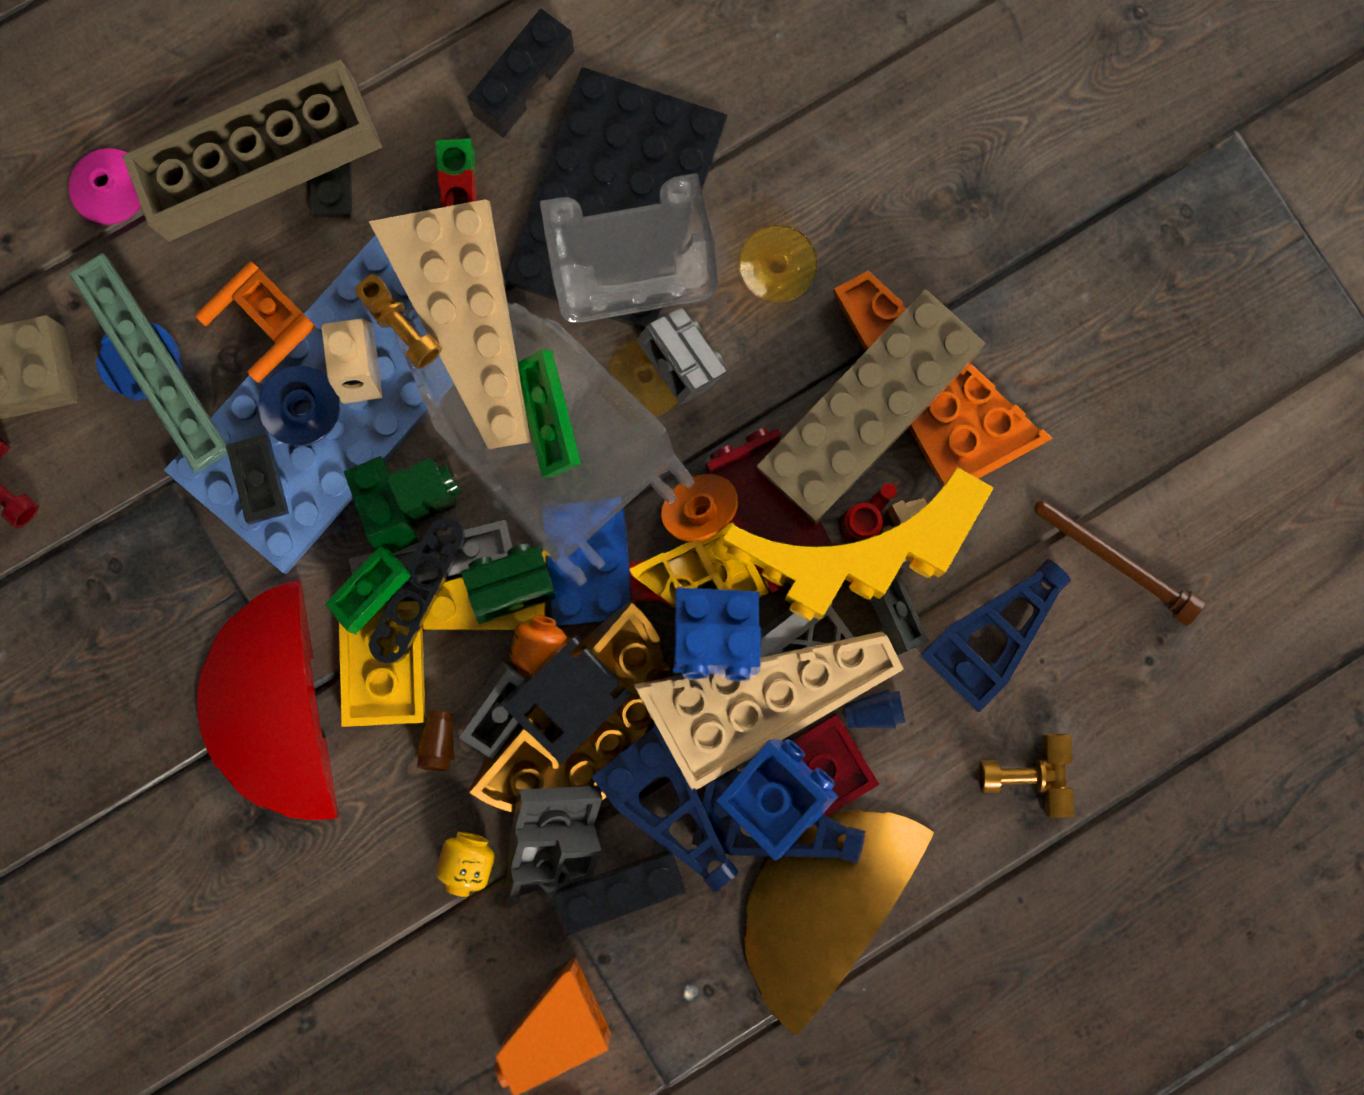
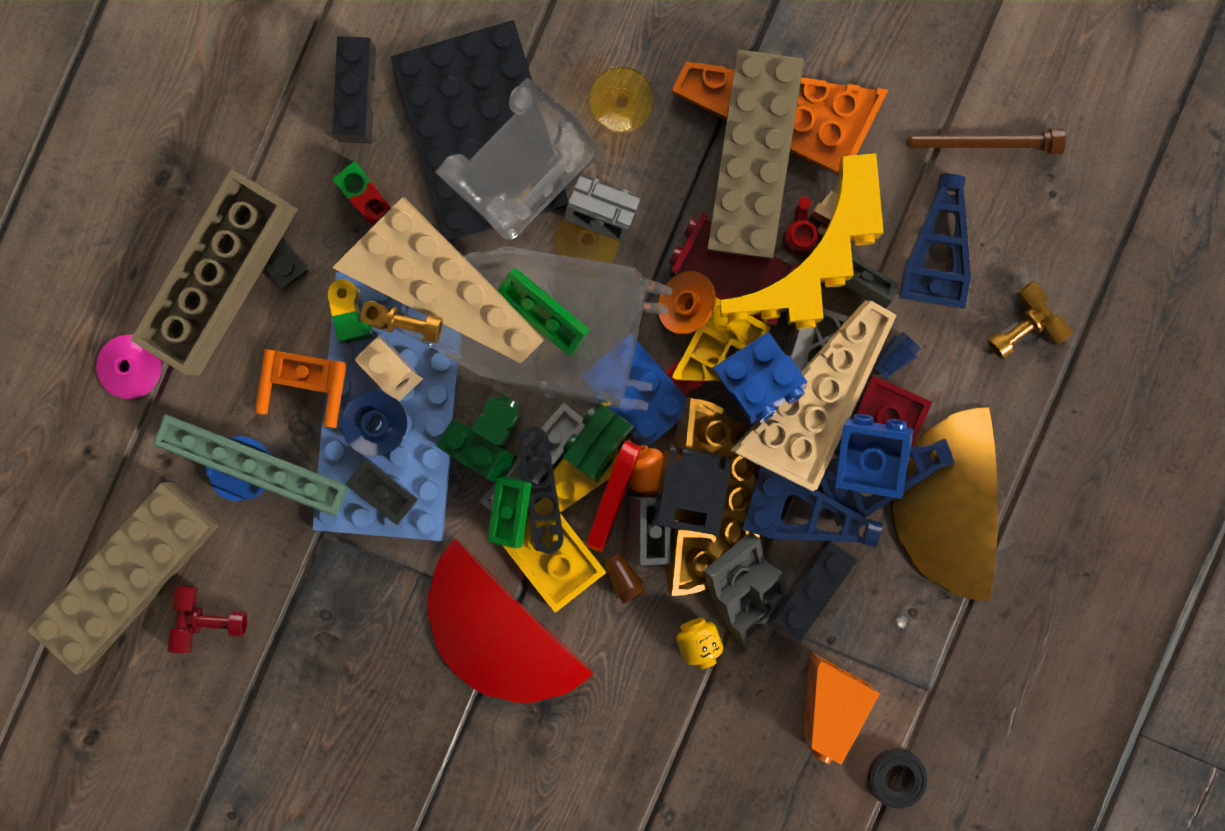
camera: 30 degrees left, 5 degrees up
(356, 263) = (345, 311): none -> leg
(484, 648) = (613, 496): none -> red beam

